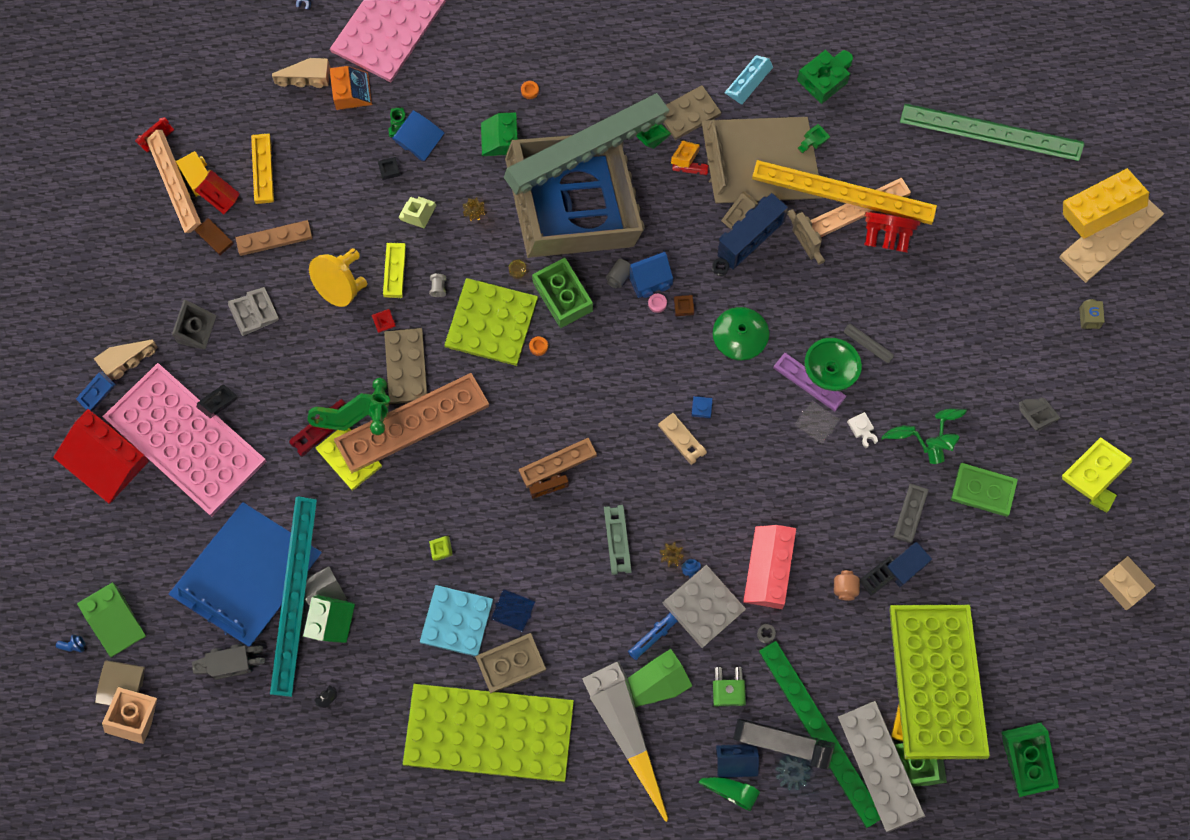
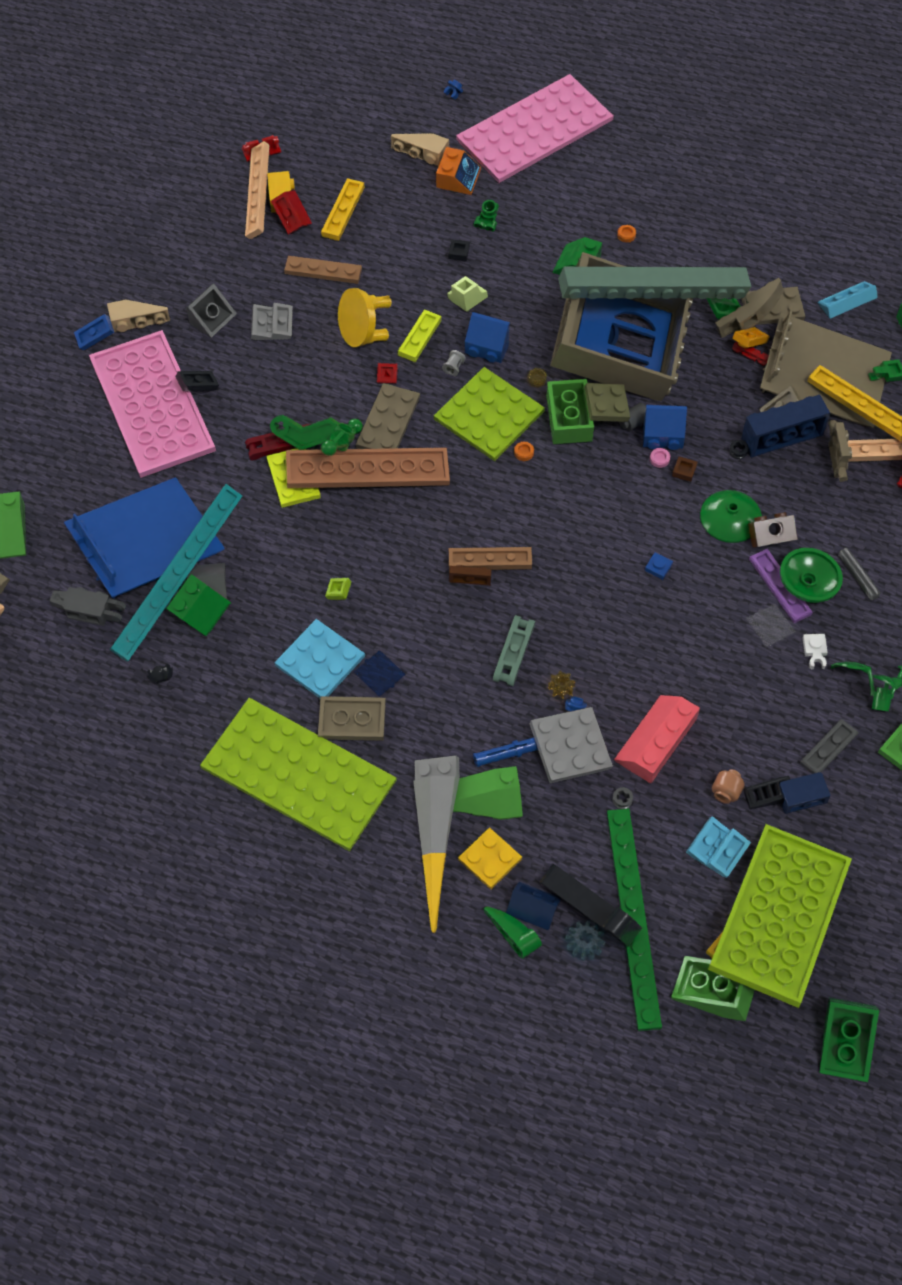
camera: 25 degrees right, 10 degrees down
(100, 456) = (69, 387): red slope -> none
(213, 236) = (269, 249): reddish brown tile -> none
(418, 135) = (500, 232): blue slope -> none
(457, 251) = (487, 338): none -> blue slope
(476, 205) = (521, 311): clear yellow gear -> none
(593, 273) = (607, 402): none -> olive plate
(679, 122) = (757, 307): none -> dark tan slope
(681, 438) = (624, 585): tan plate -> none
(683, 735) = (490, 858): none -> yellow plate
(729, 691) = (558, 836): bright green piece -> none
(793, 334) = (784, 526): none -> brick
(860, 641) = (718, 847): none -> medium azure slope
(881, 767) = (681, 974): light grey plate -> none

